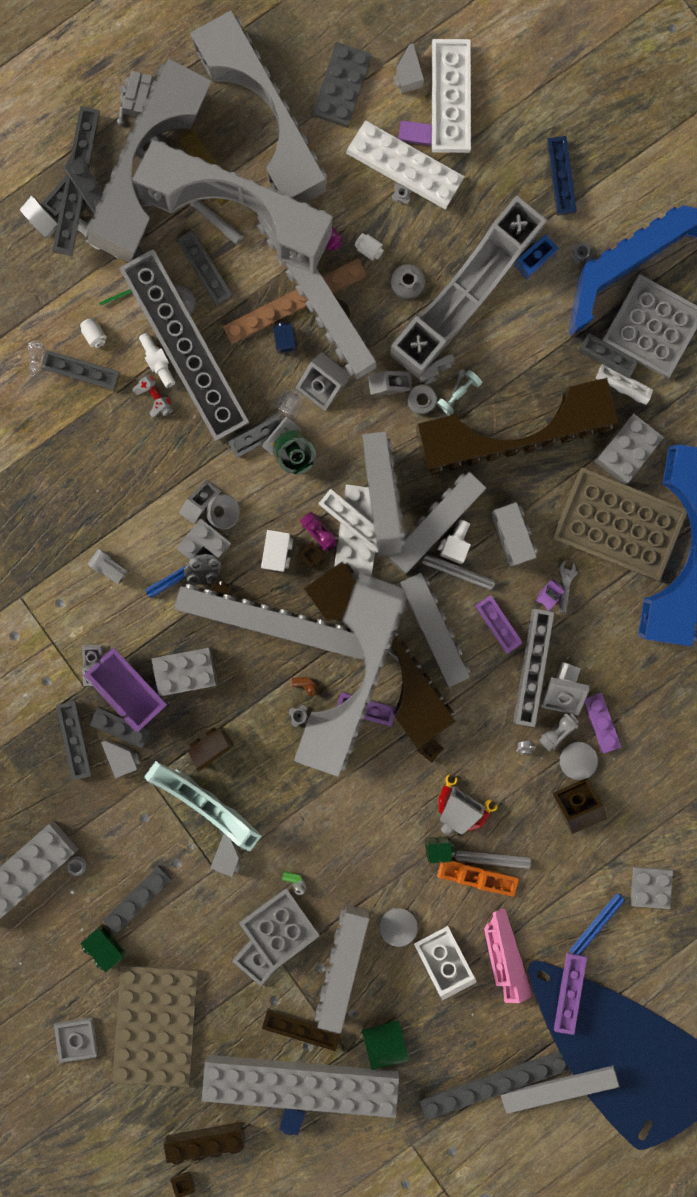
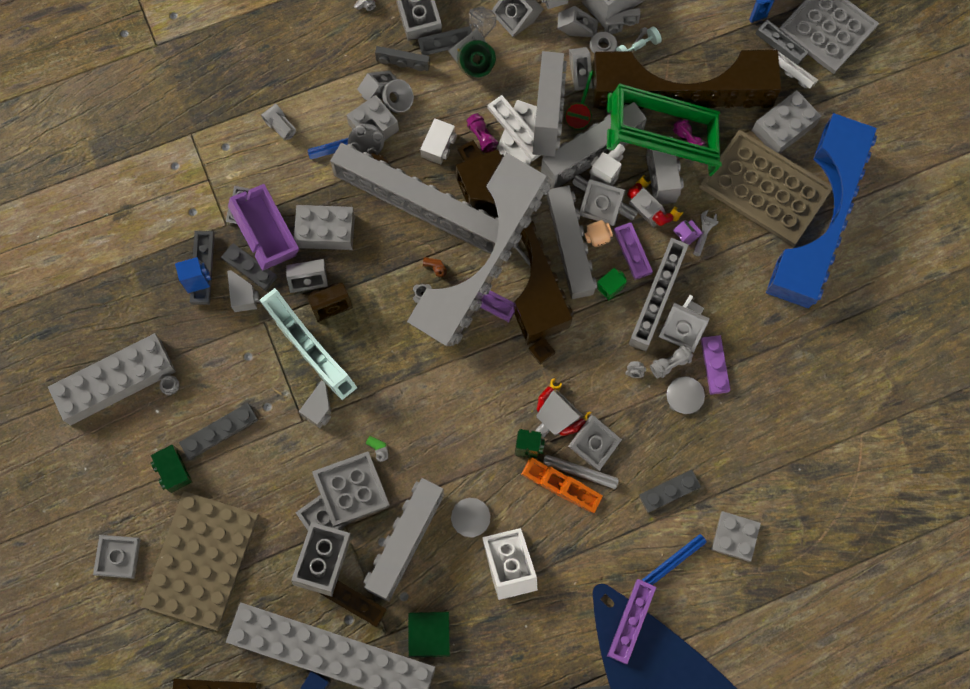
camera: 15 degrees right, 15 degrees down
(69, 759) = (193, 275): none -> blue brick
(181, 727) = (306, 275): none -> light grey brick
(216, 467) = (402, 58): none -> dark grey plate
(270, 1006) = (321, 559): none -> light grey brick
(404, 434) = (580, 67): none -> light grey slope
(413, 486) = (578, 114): none -> piece
(457, 581) = (602, 202): none -> light grey plate
(460, 615) = (598, 233): none -> light nougat head
(485, 664) = (611, 283): none -> green brick
(501, 831) = (595, 443): none -> light grey plate
(503, 575) = (648, 206): none -> torso
(505, 517) = (619, 132): none -> green piece
(506, 959) = (573, 574): bright pink wedge -> none
(539, 493) = (684, 130): none -> magenta piece
(580, 805) = (678, 437): dark brown slope -> none
(581, 858) = (669, 491): none -> dark grey plate

